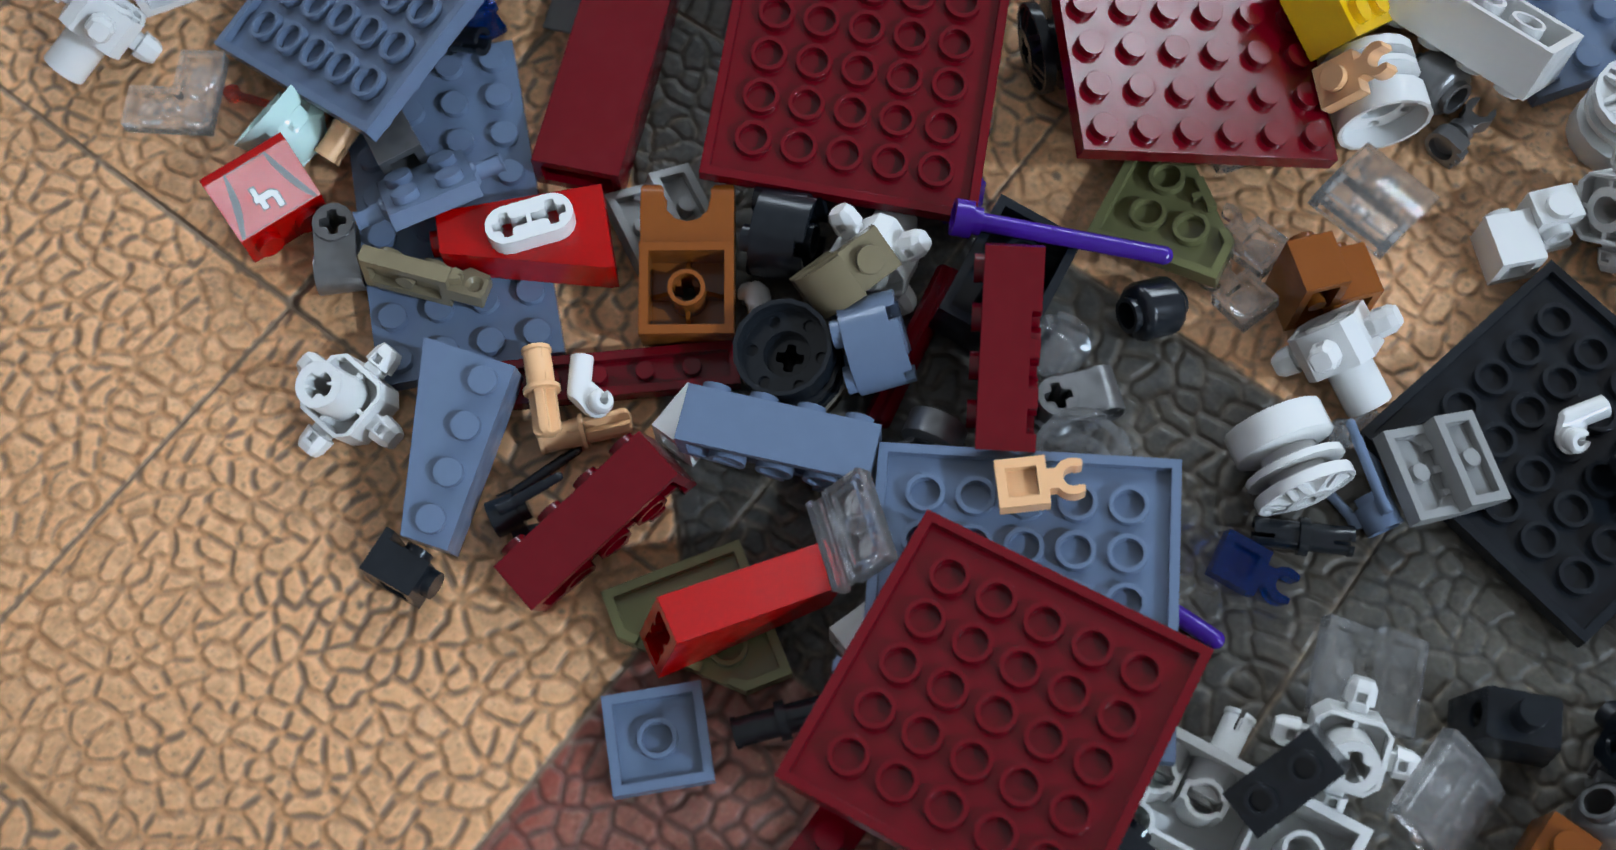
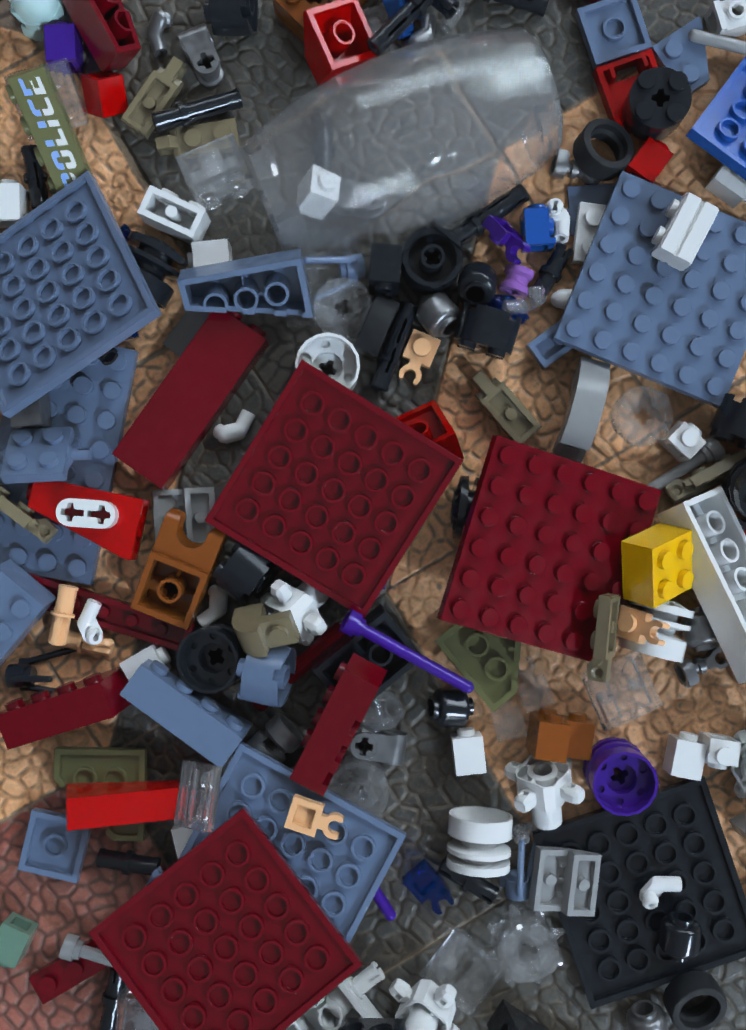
camera: 15 degrees right, 20 degrees up
(686, 86) = (234, 431): none -> white arm
(1208, 358) = (468, 752): none -> white brick
(1313, 110) = (604, 637): none -> dark tan hinge
(1453, 278) = (631, 788): none -> dark purple wheel
(1458, 571) = (526, 962): none -> clear brick

